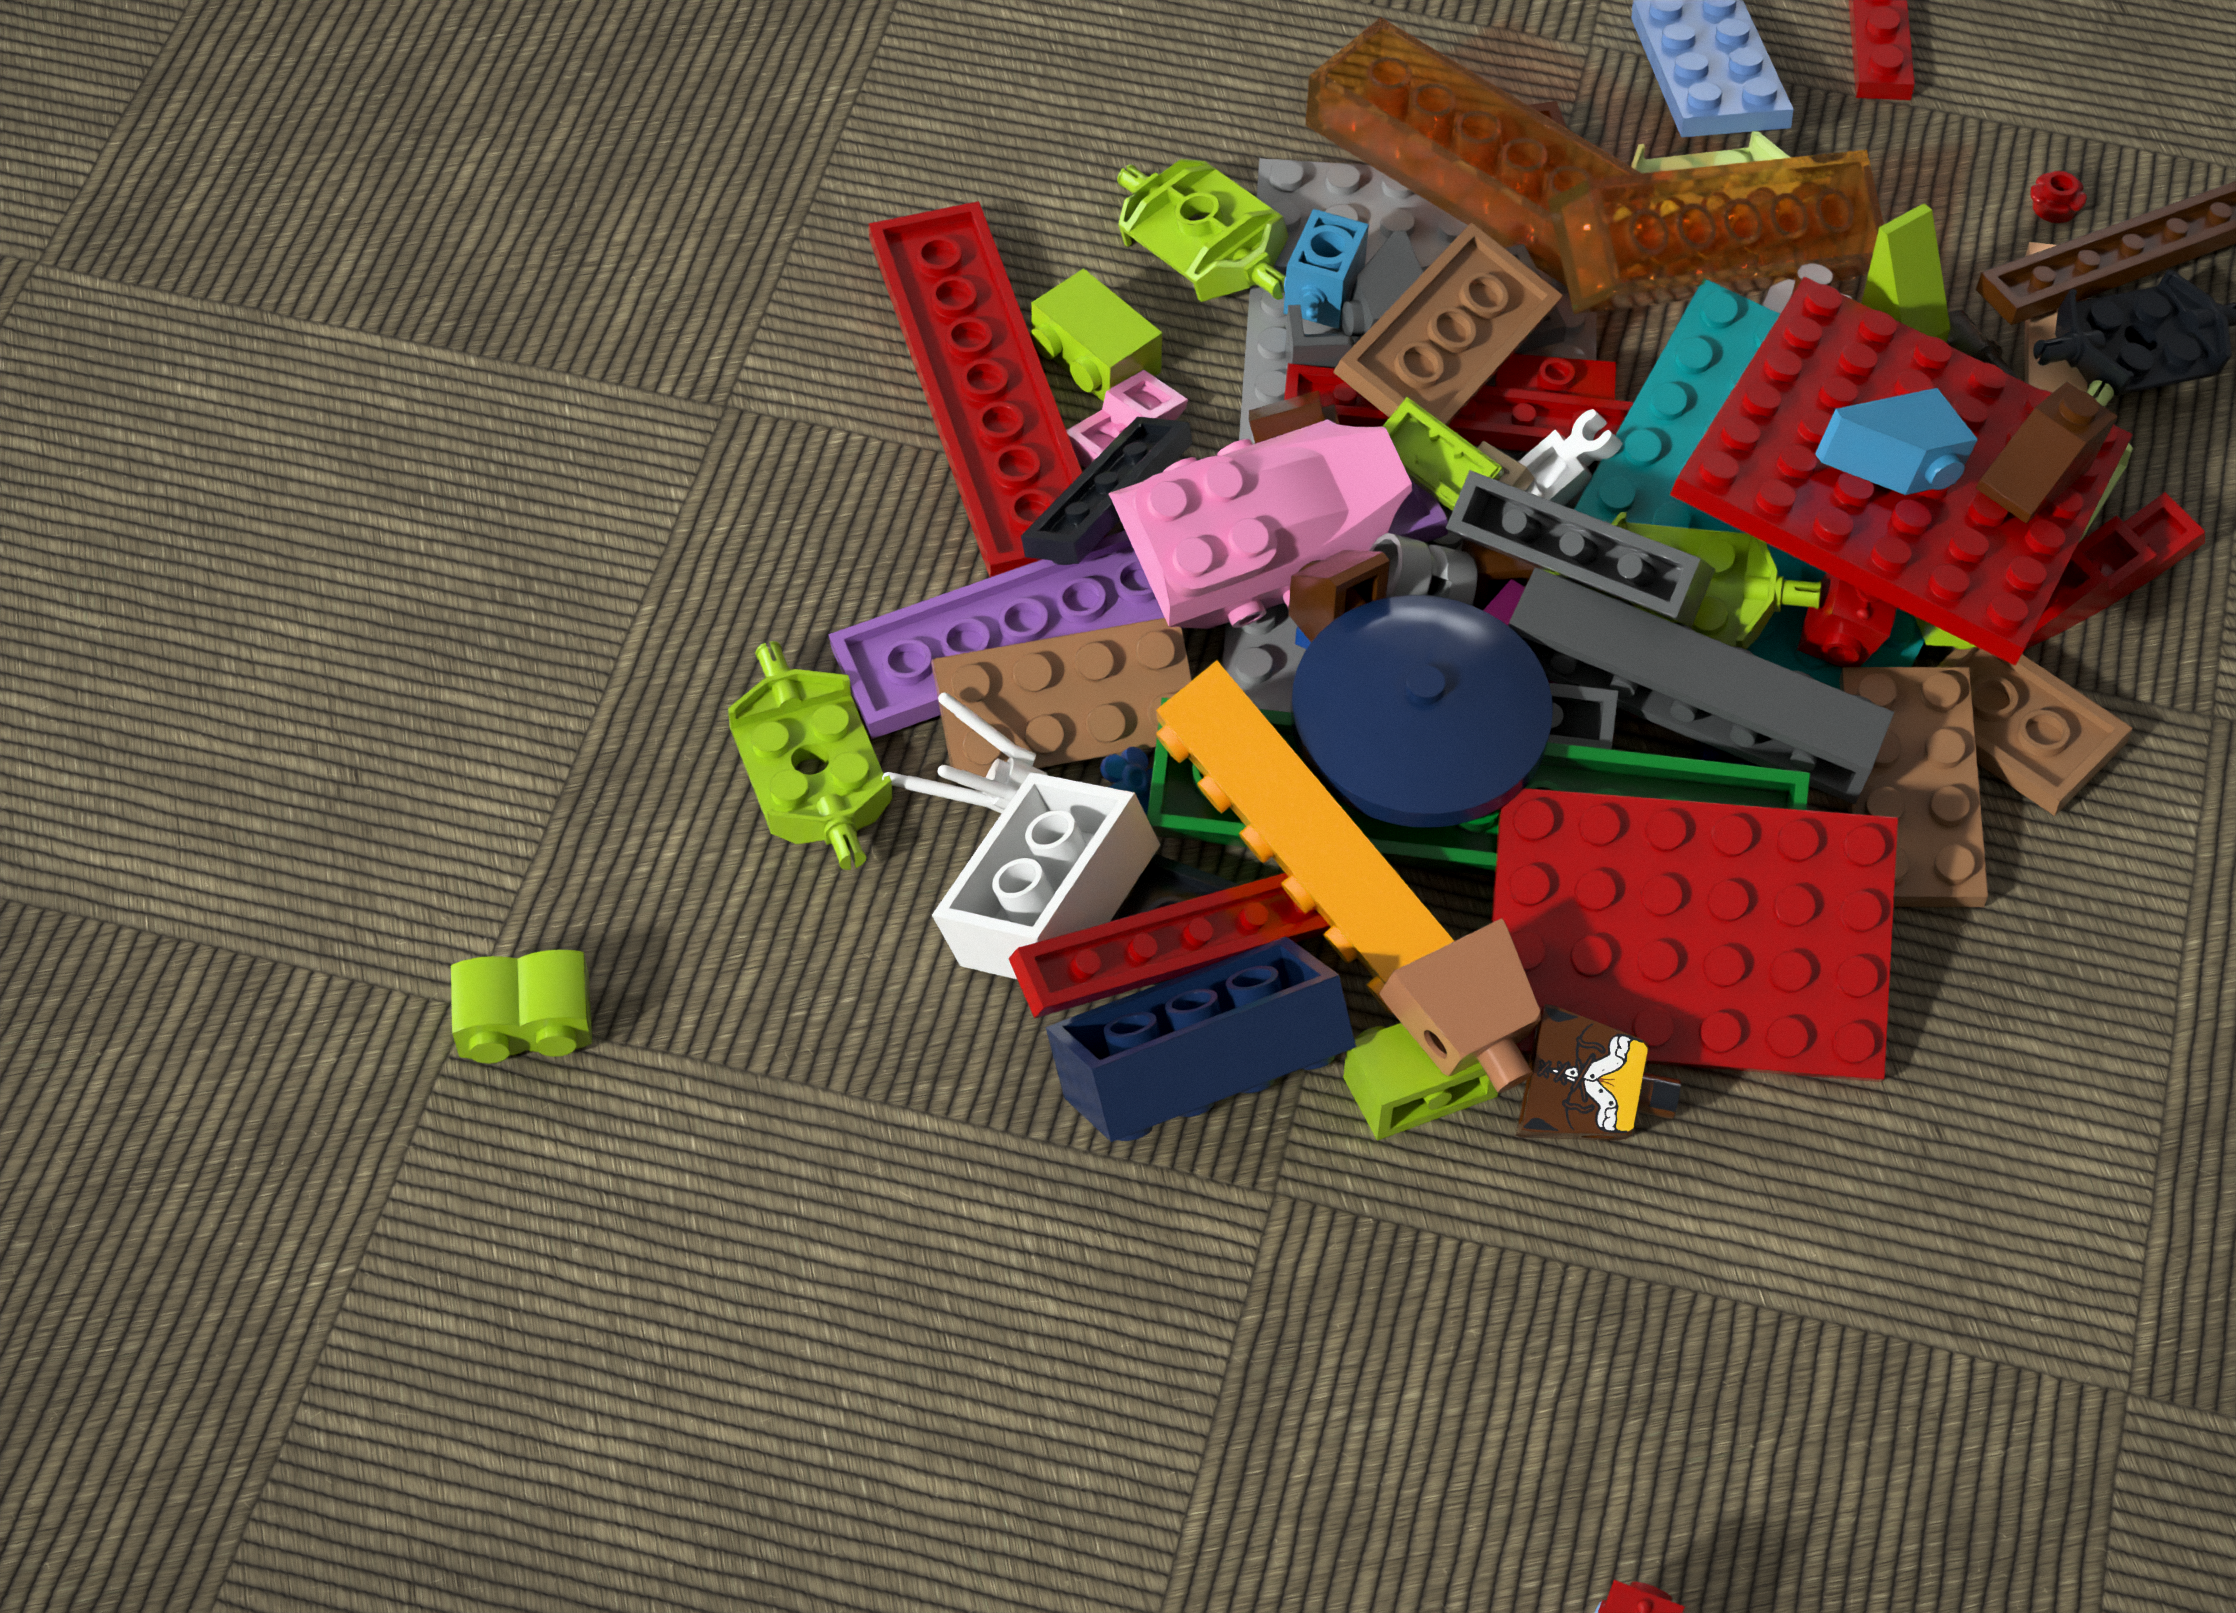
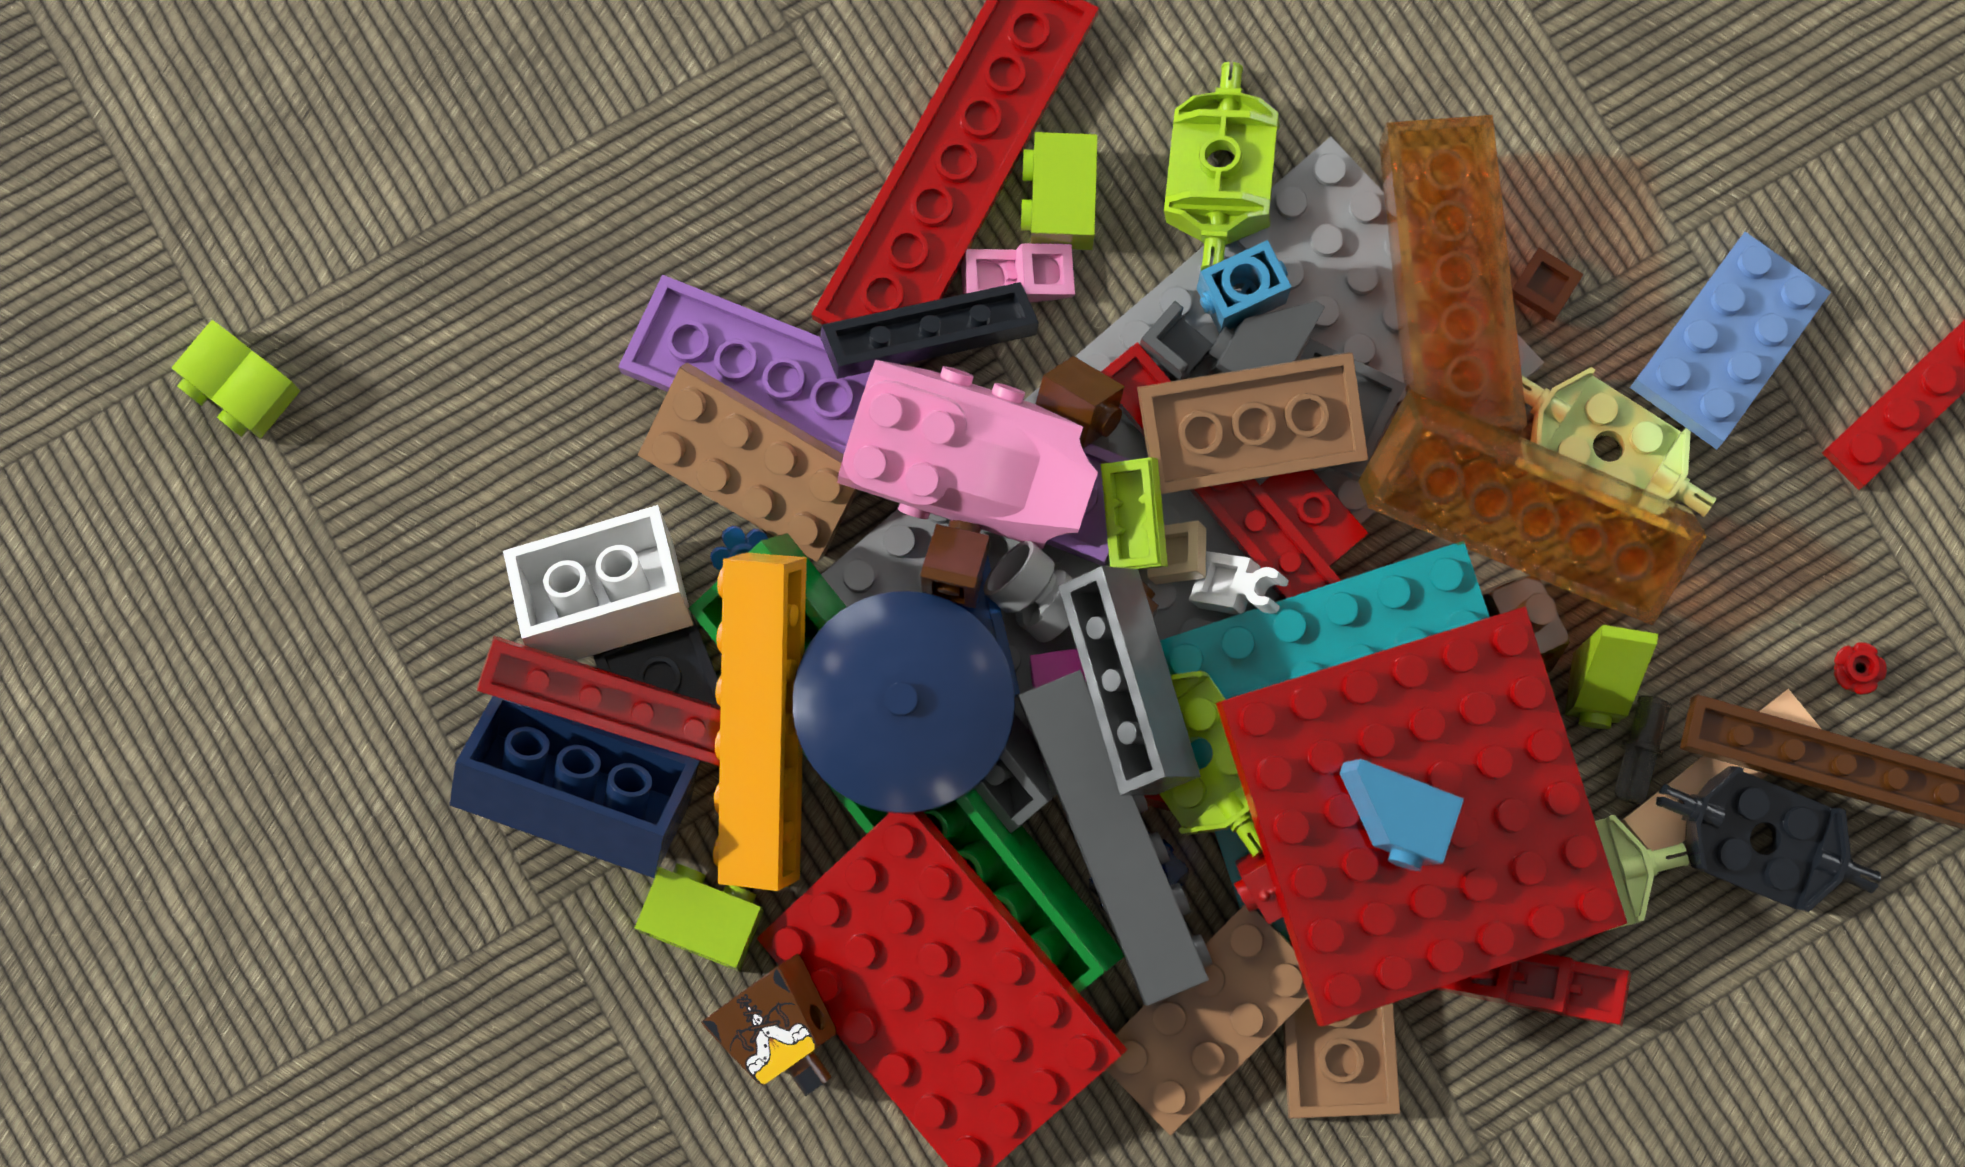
camera: 45 degrees right, 25 degrees up
(803, 718) = (566, 314): lime plate -> none
(1001, 780) = (656, 486): white plant -> none
(1469, 1005) = (732, 923): nougat torso -> none
(2048, 452) = (1503, 904): reddish brown slope -> none

